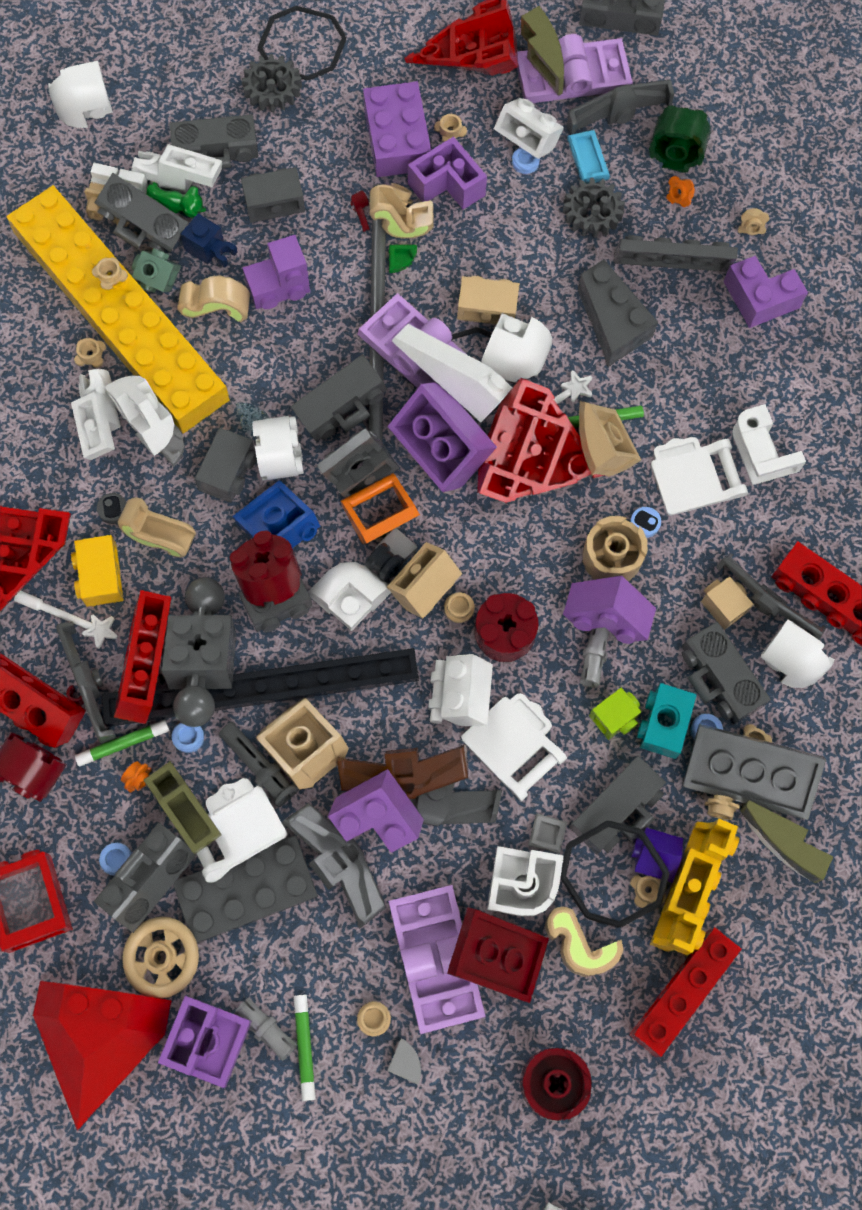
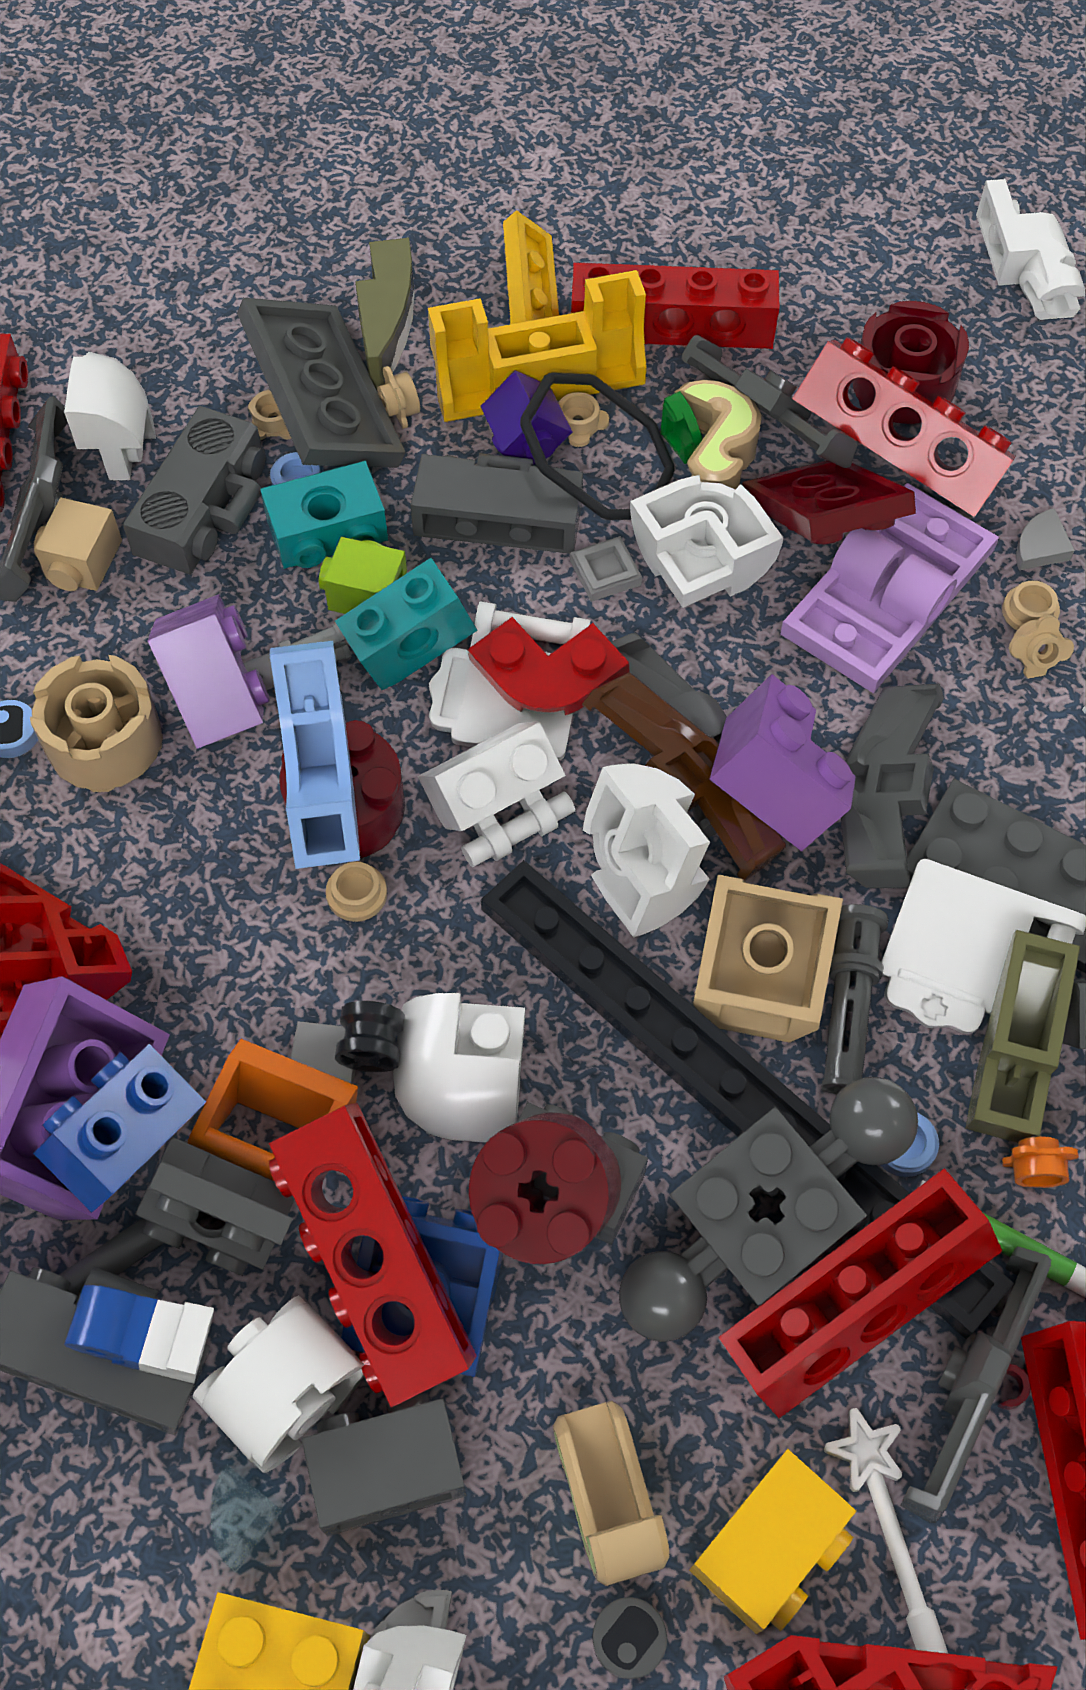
camera: 125 degrees left, 10 degrees down
(294, 499) = (391, 1362): none -> red brick
(326, 408) = (140, 1331): none -> leg
(349, 998) = (1031, 637): none -> tan plate
(383, 727) = (645, 845): none -> white brick
(407, 442) = (119, 1127): none -> brick
(424, 580) = (353, 955): tan brick -> none
(501, 748) = (544, 682): none -> red plate
(503, 603) = (315, 755): none -> light blue arch
(511, 1032) = (826, 395): none -> brick
(571, 708) = (406, 625): none -> teal brick
(580, 985) = (773, 397): none -> dark grey plate
(603, 933) = (680, 426): none -> green tile
(756, 932) = (529, 270): none -> yellow plate

